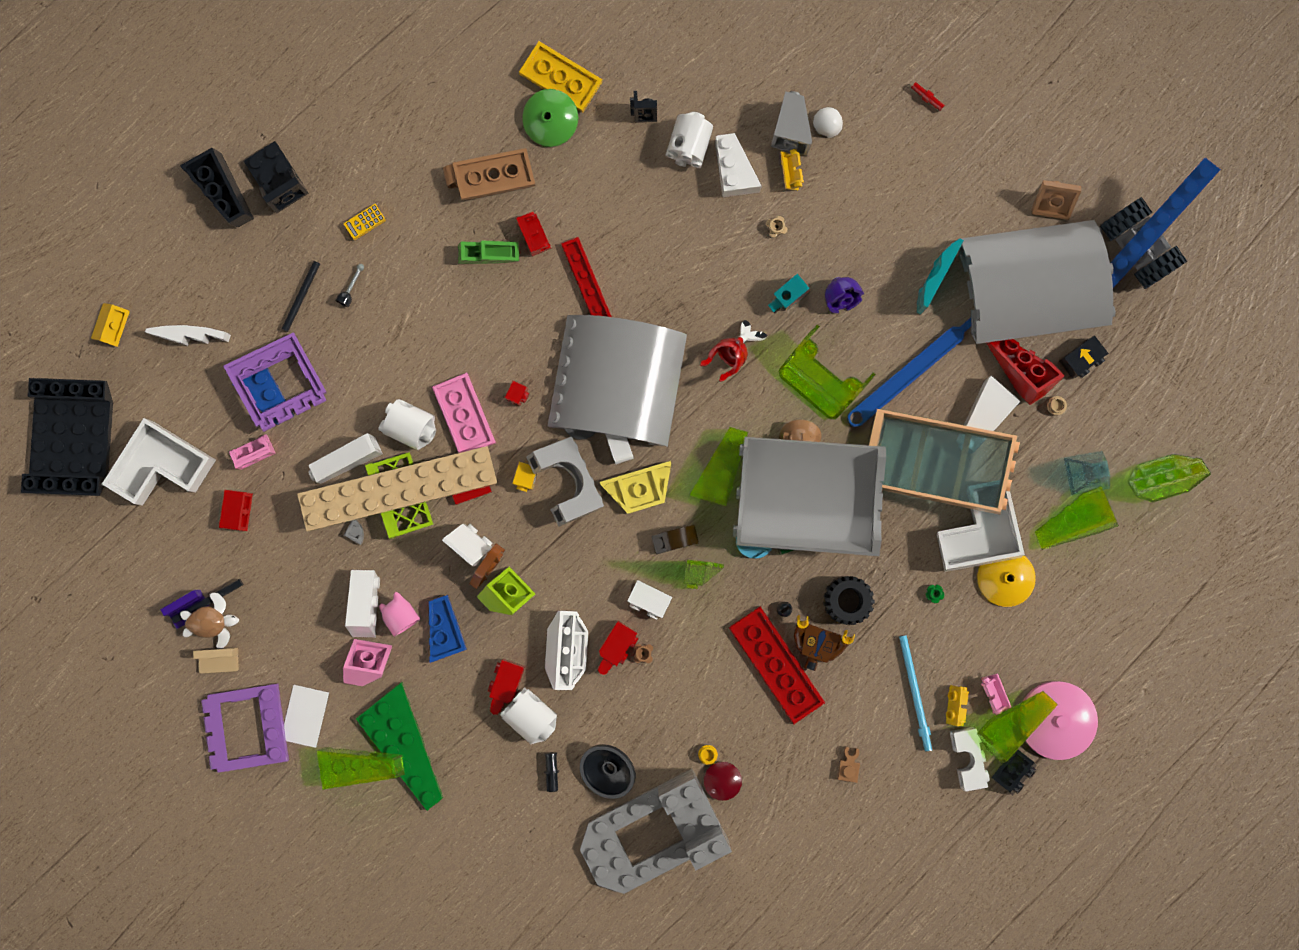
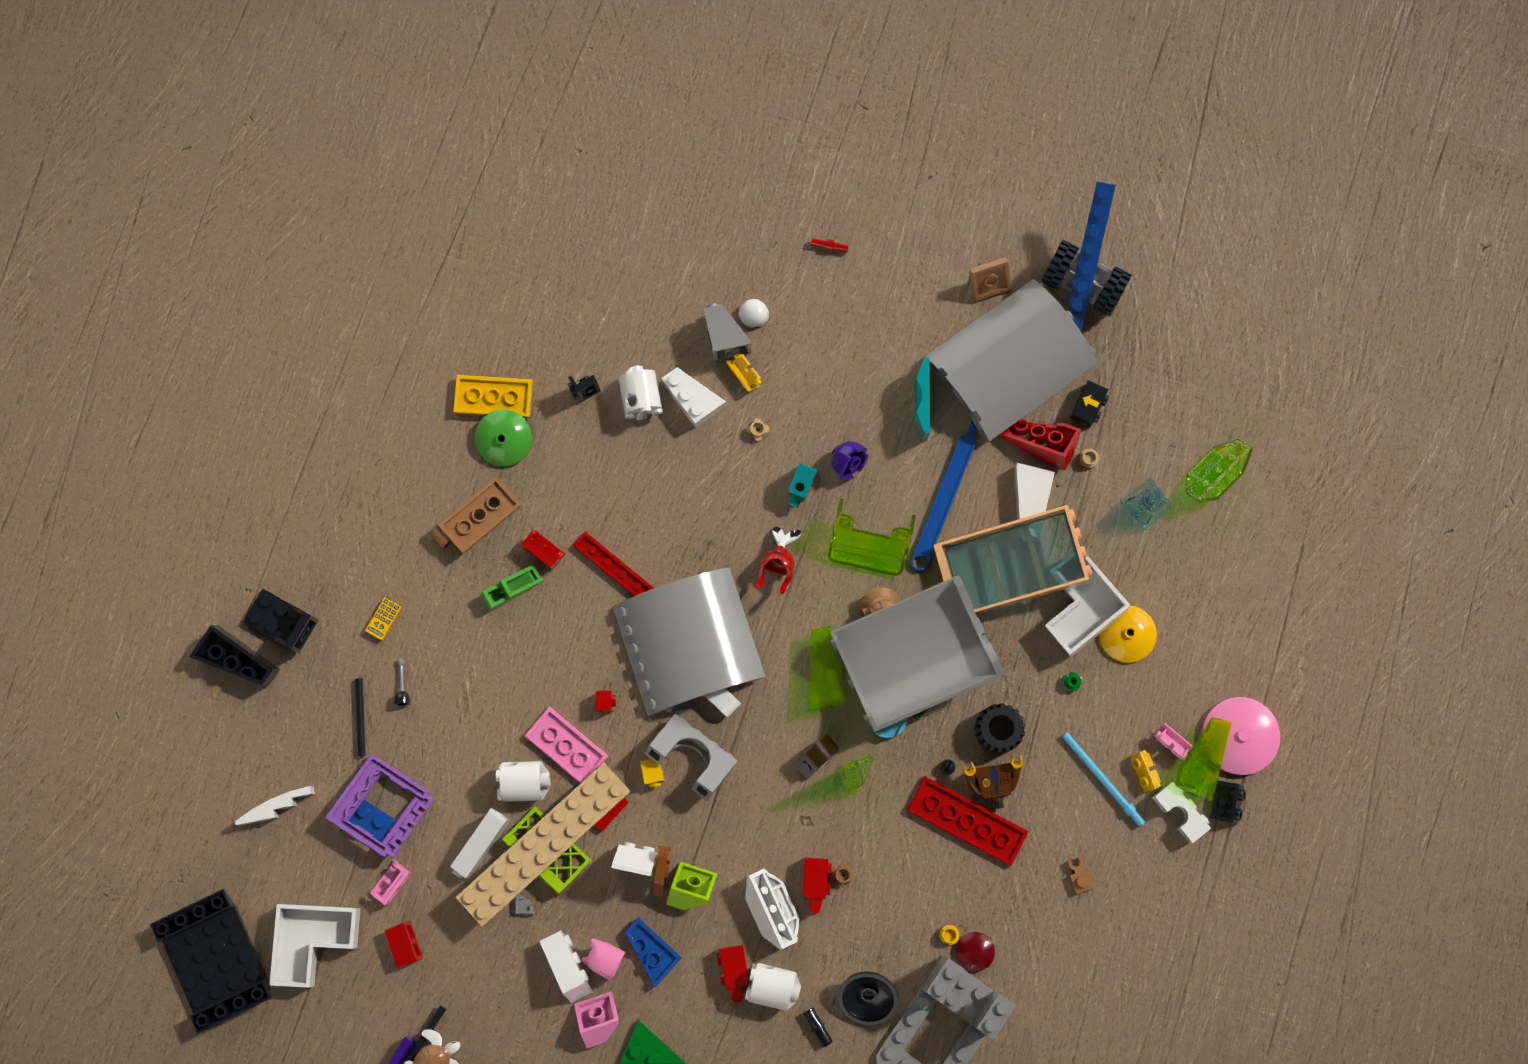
camera: 30 degrees left, 5 degrees down
(110, 324) = (196, 835): yellow panel -> none
(640, 488) = (761, 727): light yellow wing -> none
(649, 599) = (822, 822): white brick -> none
(1080, 519) = (1164, 546): clear neon green wedge -> none

